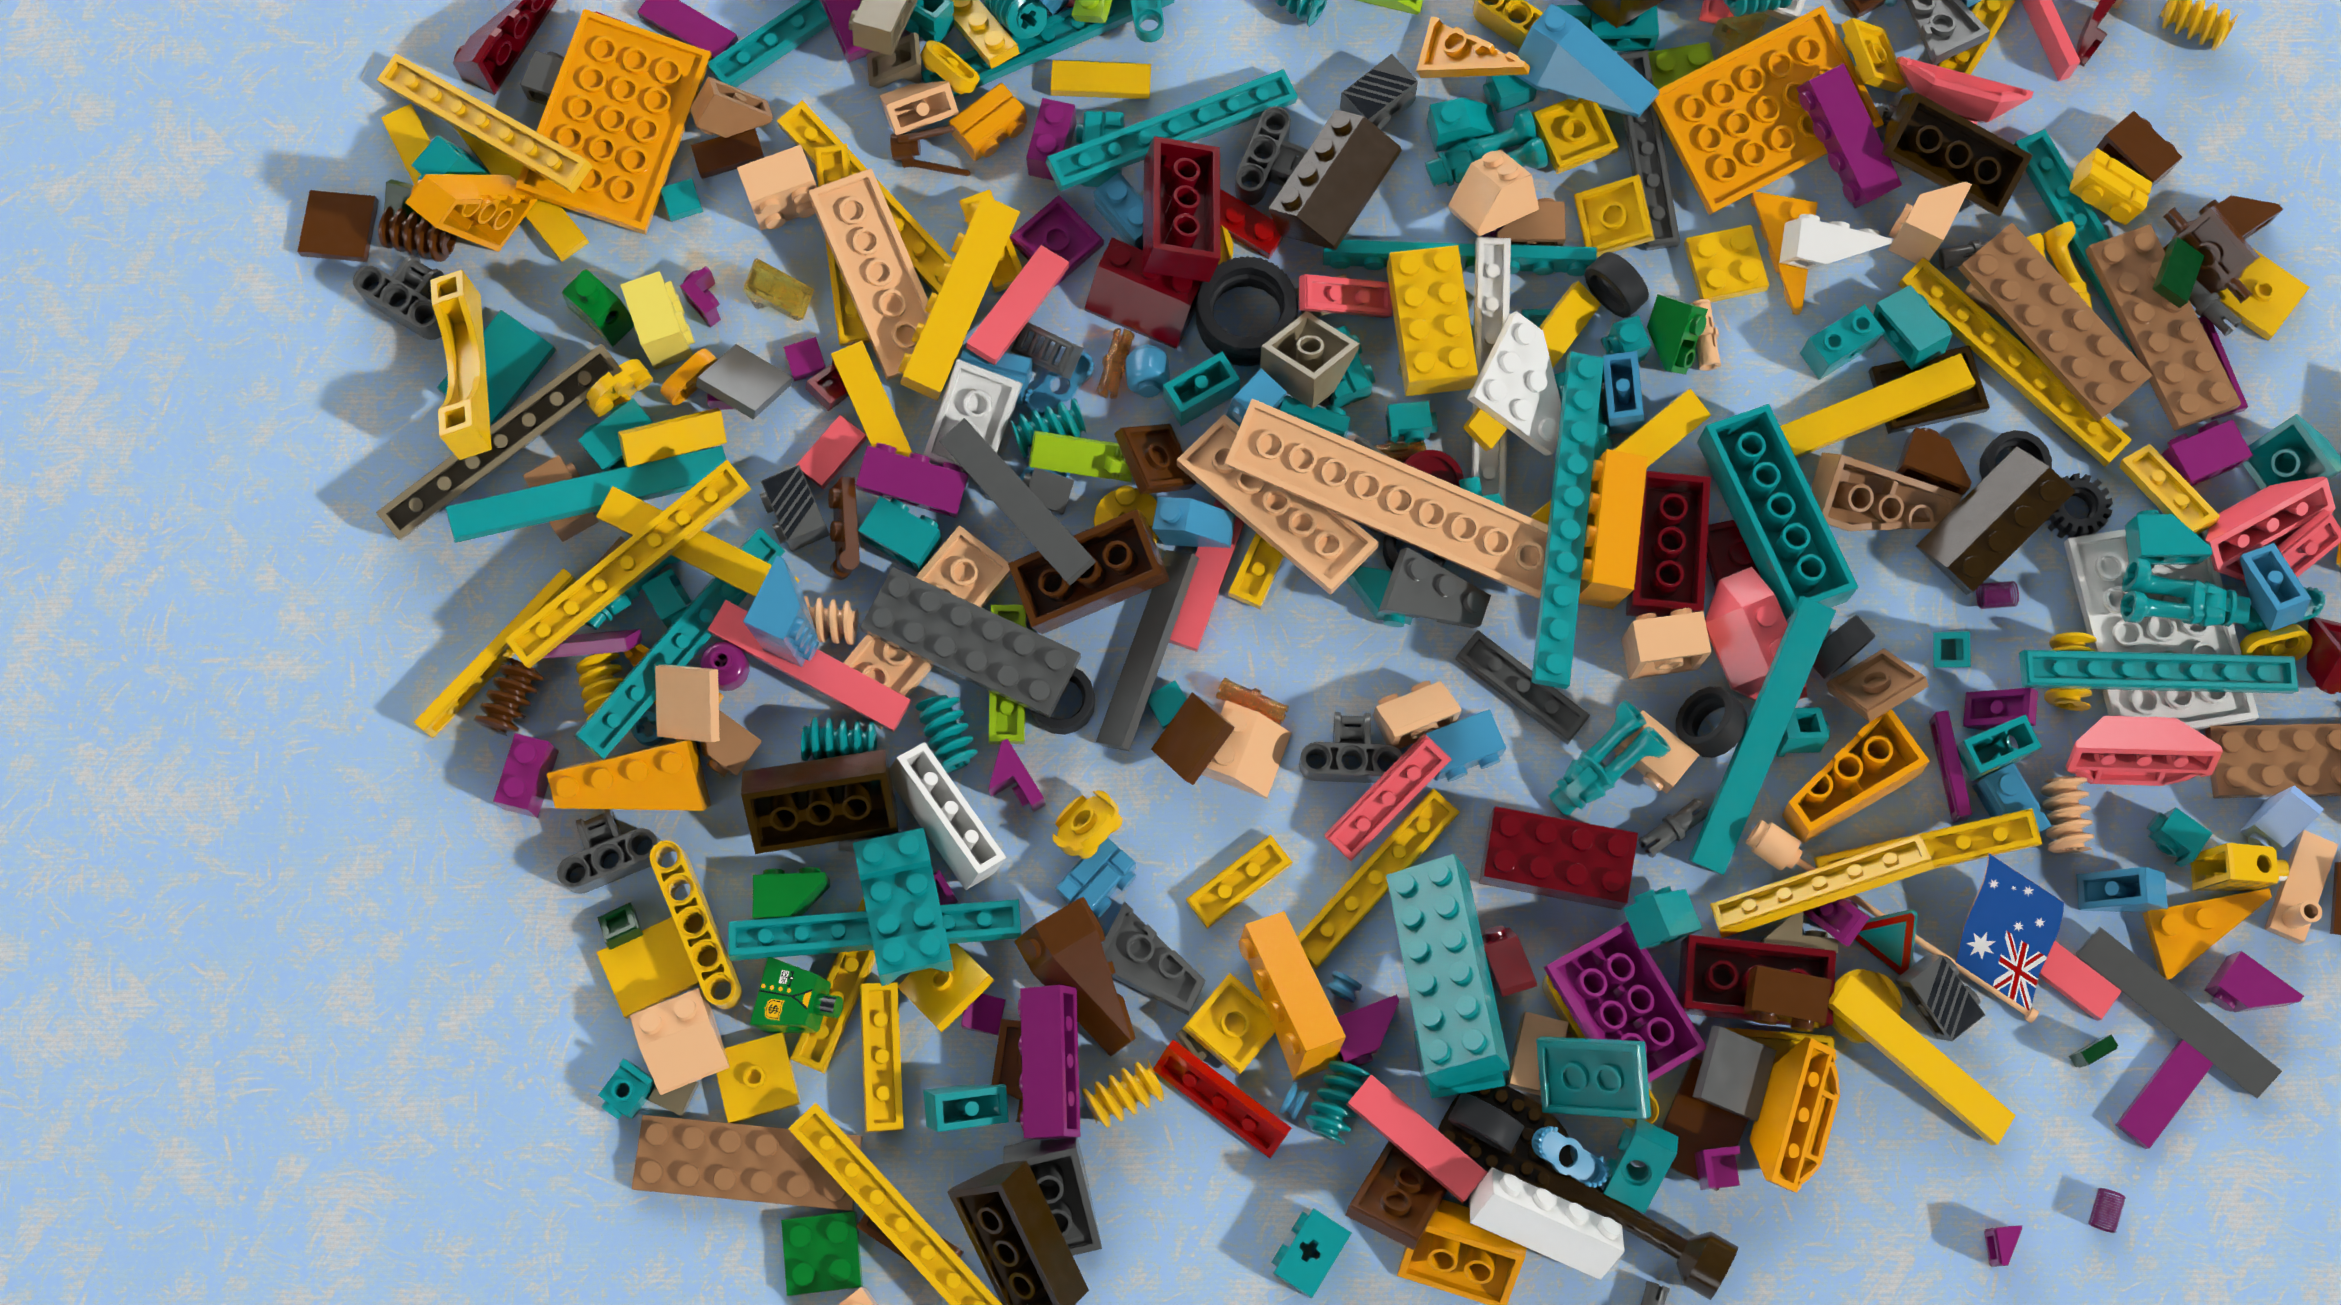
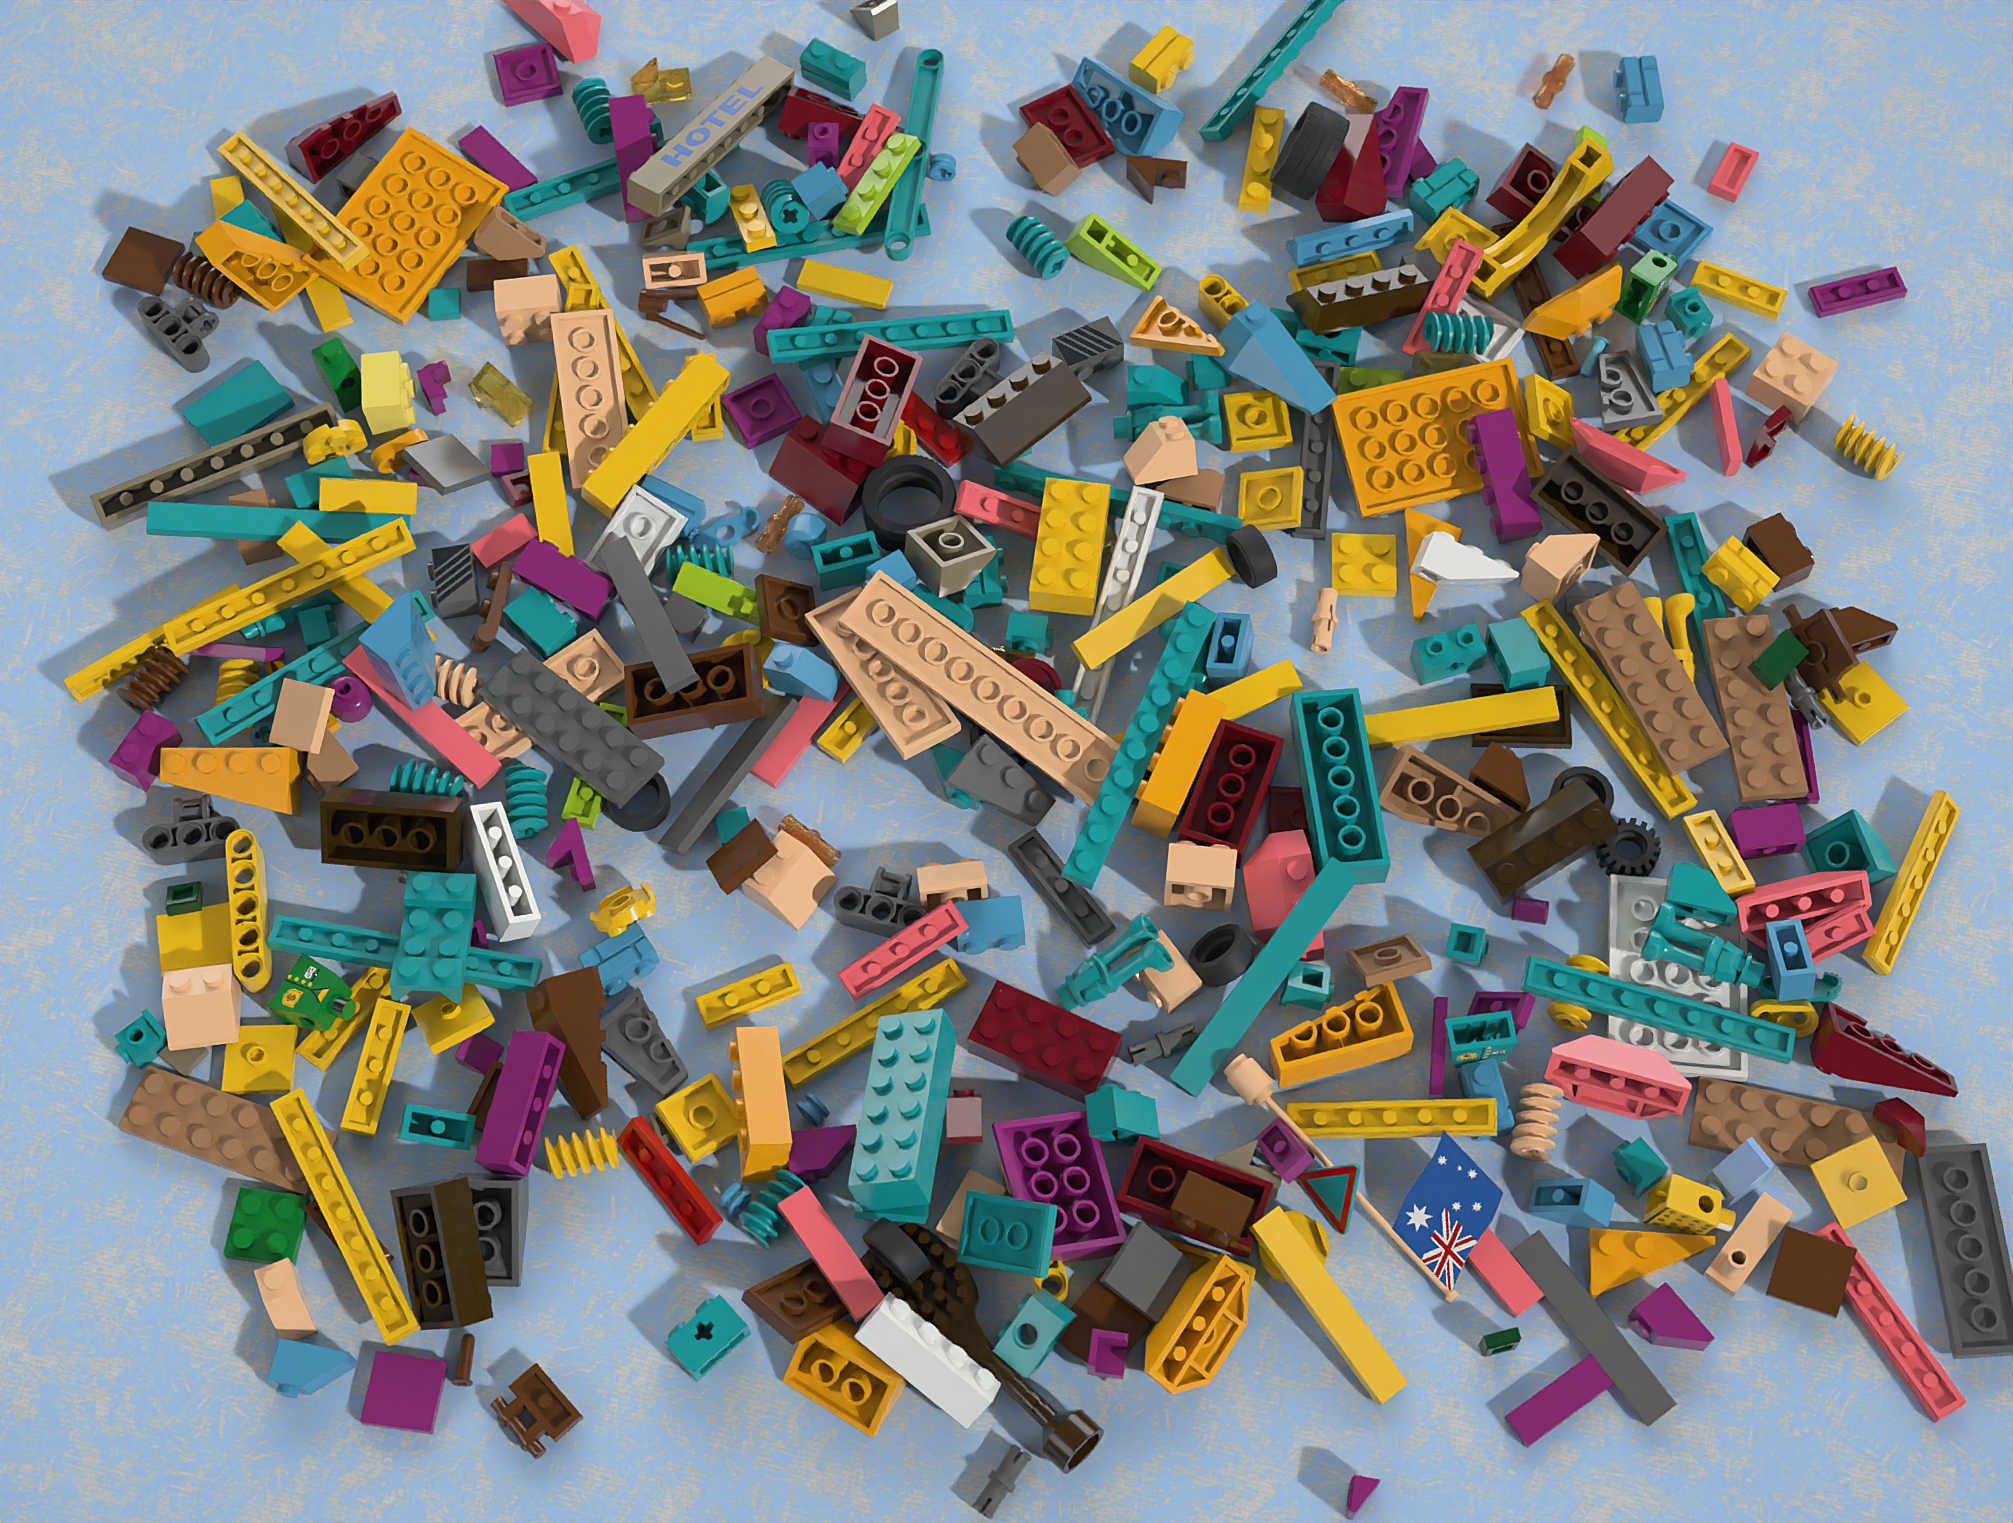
camera: 15 degrees right, 10 degrees down
(465, 412) = (218, 356): yellow arch -> none
(787, 894) = (340, 904): green slope -> none
(950, 67) = (711, 242): yellow plate -> none
(1017, 305) = (705, 453): coral tile -> none
(1068, 360) = (735, 512): dark grey slope -> none
(1520, 385) = (1133, 619): white plate -> none
(1585, 1168) = (982, 1321): dark azure piece -> none
(1627, 336) = (1250, 601): teal brick -> none
(1675, 331) = (1294, 610): green slope -> none
(1821, 886) = (1280, 1124): yellow tile -> none
(1842, 646) = (1363, 918): black tyre -> none
(1941, 996) = (1366, 1254): dark grey brick -> none
(2096, 1219) = (1464, 1492): magenta piece -> none

